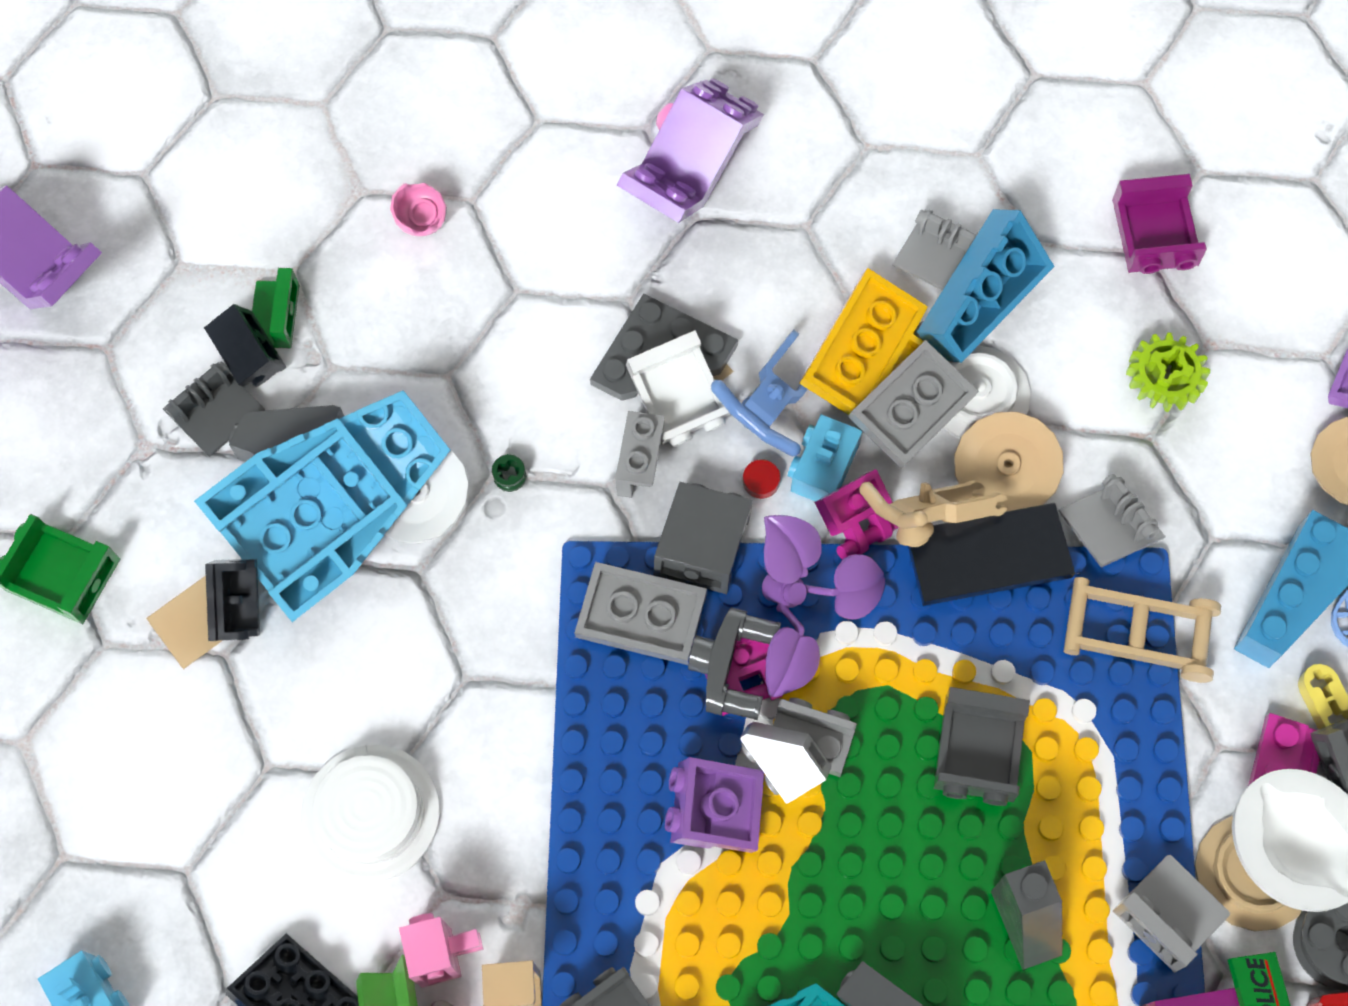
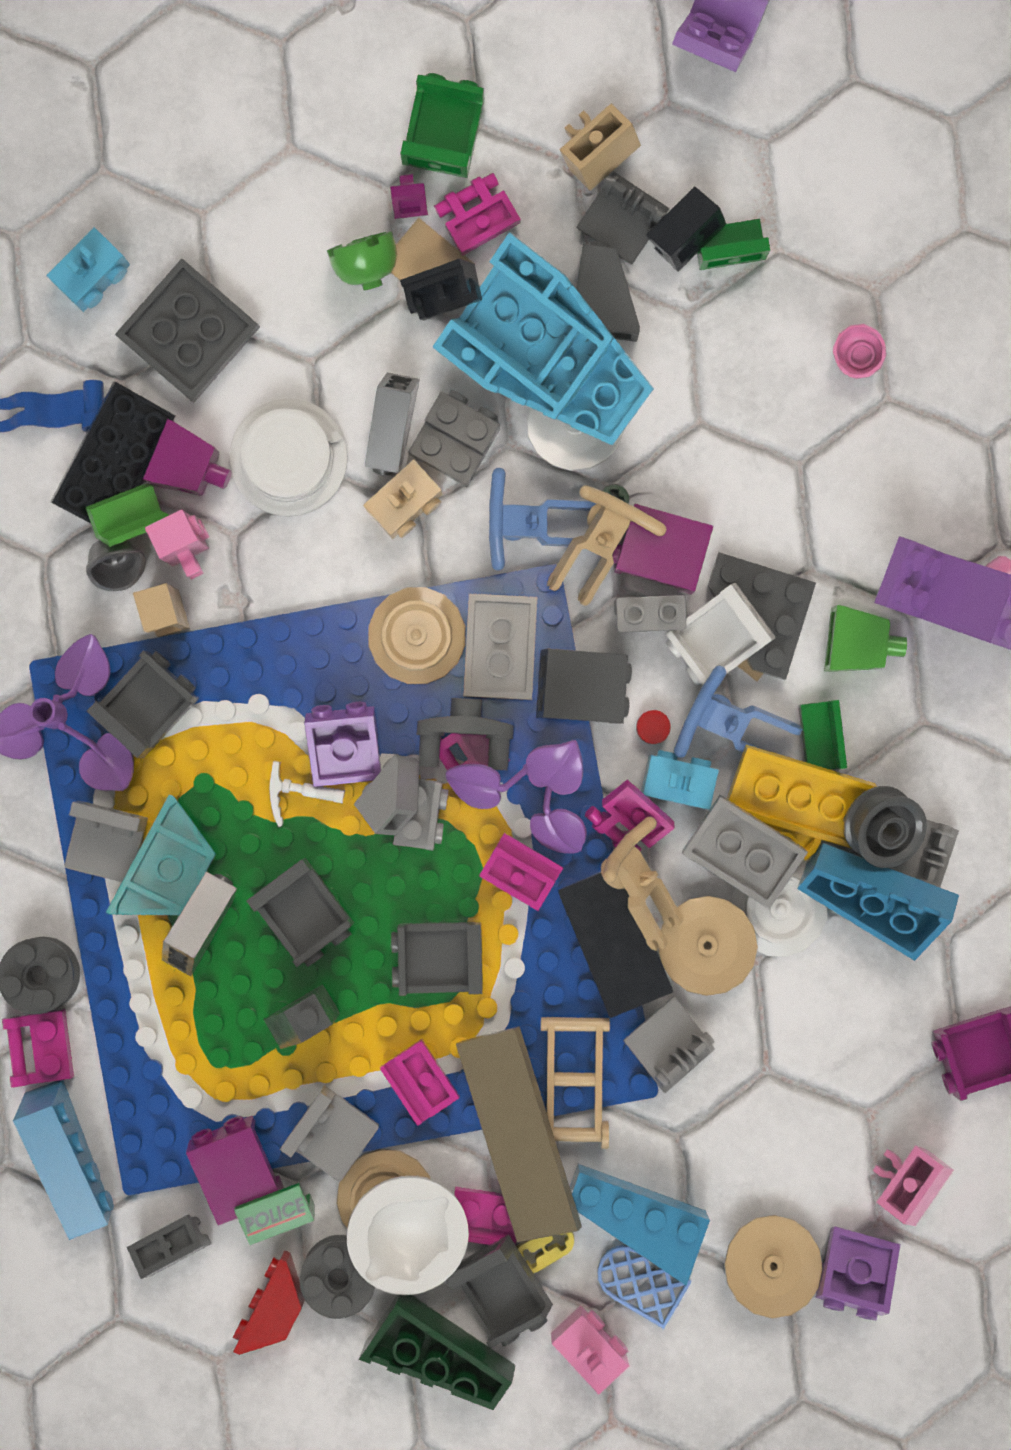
camera: 80 degrees right, 20 degrees up
(122, 618) = (408, 198): none -> magenta tile
(131, 411) = (599, 145): none -> tan brick
(173, 551) = (482, 222): none -> dark pink plate
(174, 676) = (365, 260): none -> bright green cylinder
(192, 898) = (187, 330): none -> dark grey plate
(344, 929) = (185, 462): none -> magenta torso
(364, 683) = (391, 423): none -> slope
(397, 621) = (455, 437): none -> dark grey plate
(452, 688) = (404, 500): none -> tan brick
(509, 559) = (521, 520): none -> medium blue piece
(539, 477) = (606, 525): none -> tan piece
(571, 431) = (665, 559): none -> magenta panel
(608, 705) = (416, 635): none -> tan piece
(712, 263) = (860, 641): none -> bright green torso
(759, 862) = (306, 790): none -> white piece
(803, 309) = (823, 734): none -> green panel
(896, 639) = (521, 871): none -> dark pink plate
(904, 894) = (302, 912): none -> dark grey panel
(910, 266) = (880, 809): none -> dark grey wheel
(1121, 796) = (419, 1082): none -> dark pink plate
(1186, 376) = (825, 1091): lime gear -> none
(1196, 695) = (518, 1135): none -> dark tan tile
(1291, 309) = (913, 1185): none -> bright pink brick

